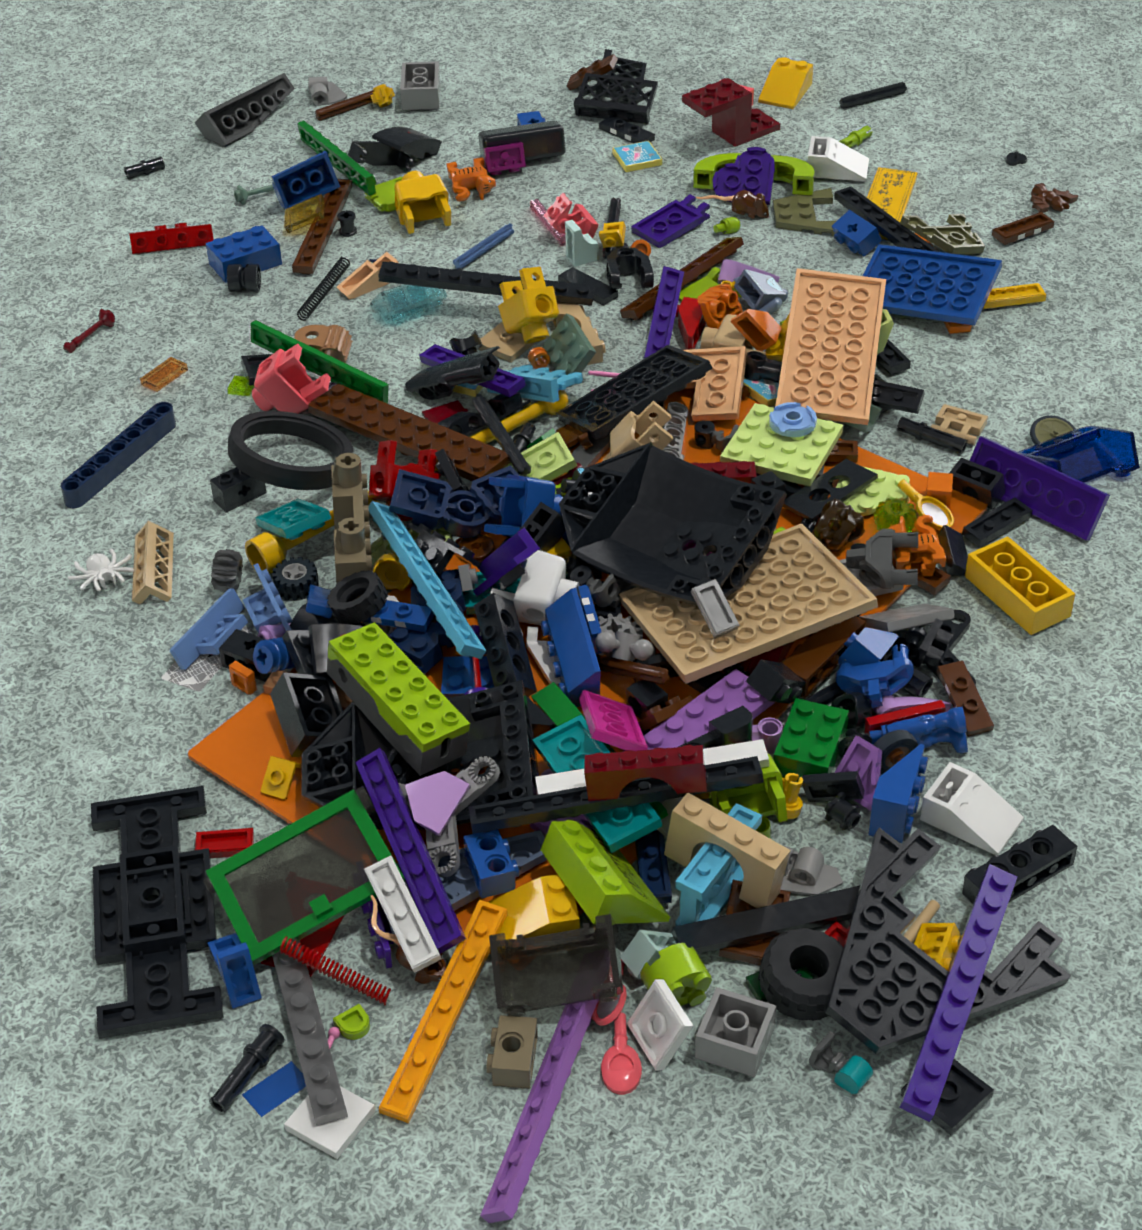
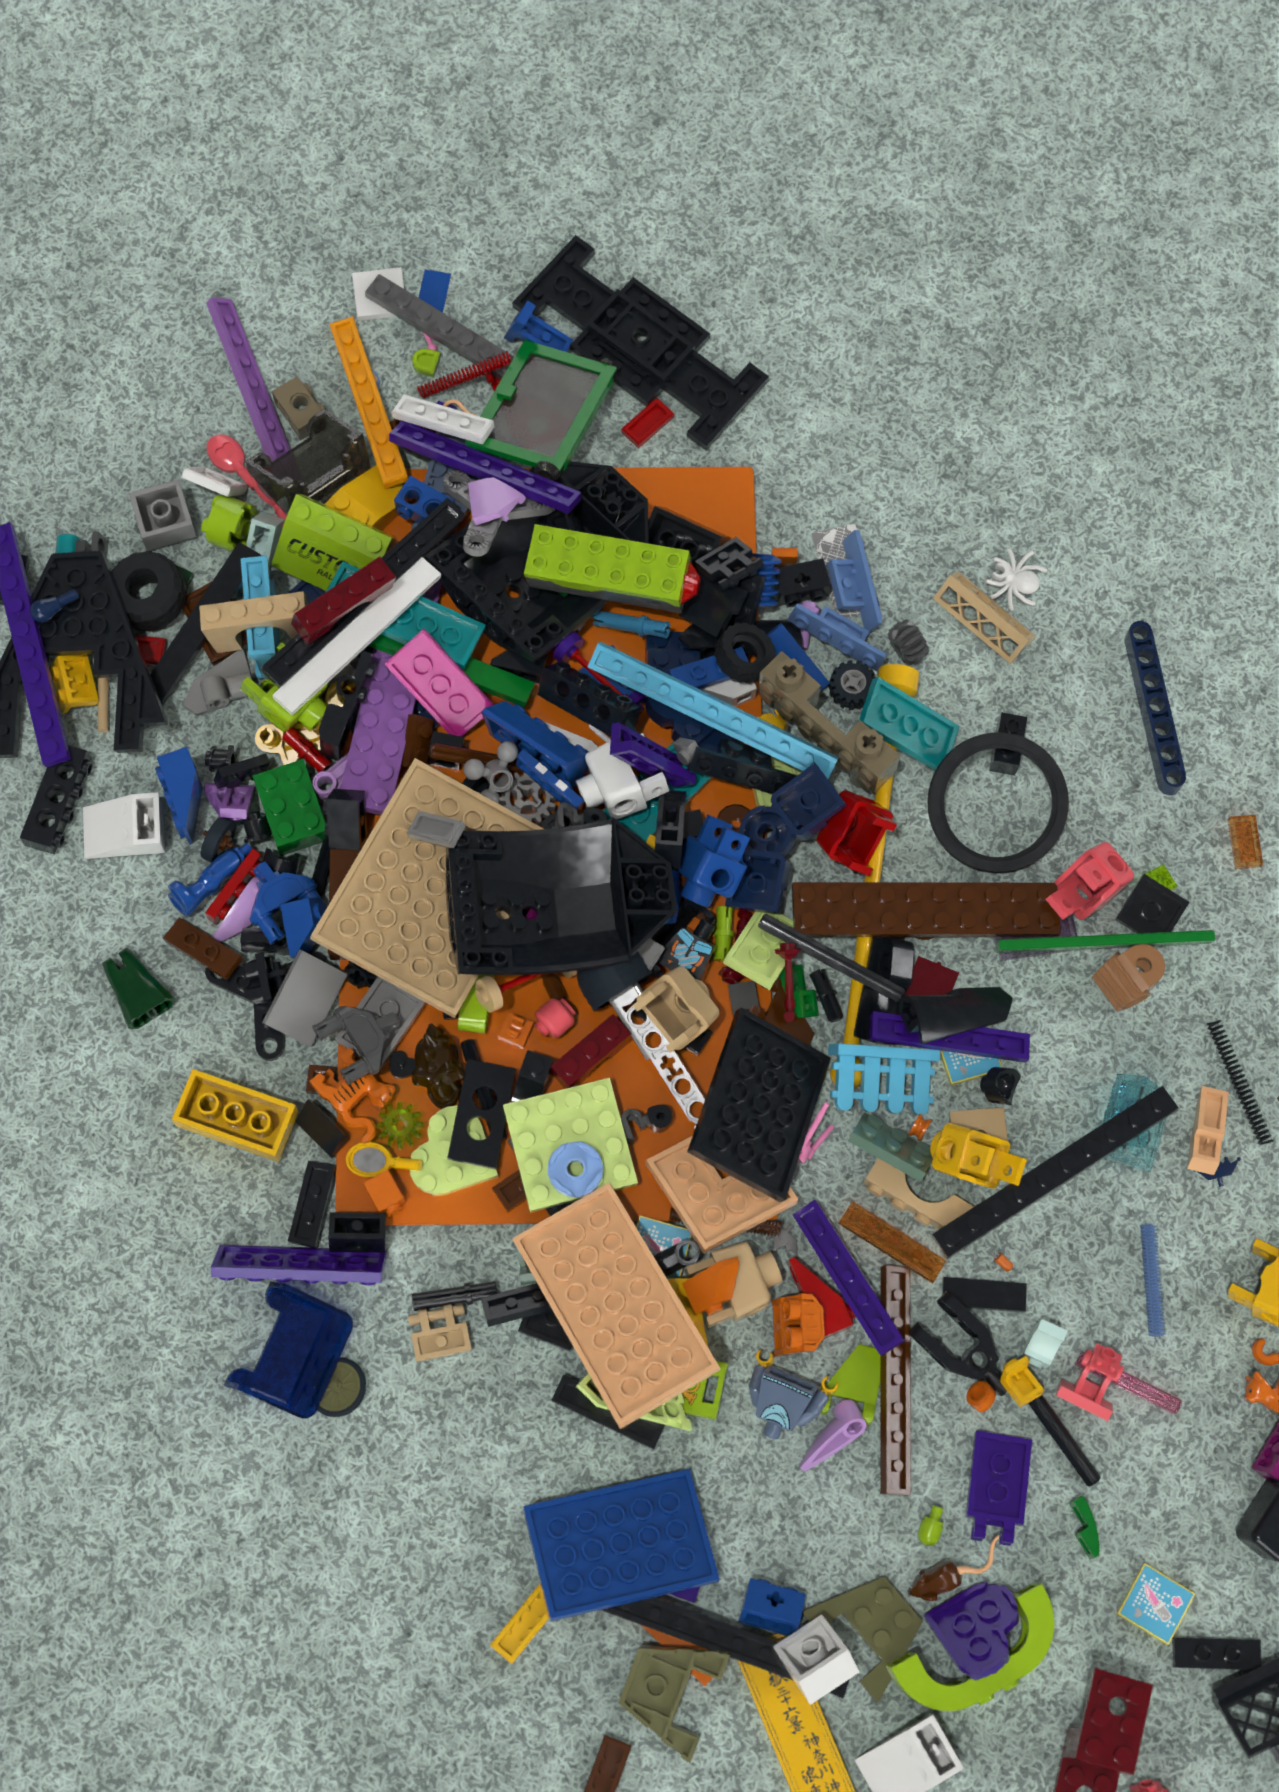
camera: 135 degrees right, 30 degrees up
(254, 1057) = (462, 293): black pin -> none
(279, 777) = (656, 486): yellow bracket -> none
(300, 658) = (726, 558): none -> black plate
(447, 468) = (814, 866): black plate -> none
(528, 444) = (788, 952): none -> dark red piece
(617, 325) = (892, 1242): none -> clear orange tile
(641, 186) = (1088, 1536): none -> green slope
(853, 192) = (816, 1659): none -> white slope
(923, 992) = (44, 609): none -> dark blue piece
(1042, 701) = (137, 990): none -> dark green piece

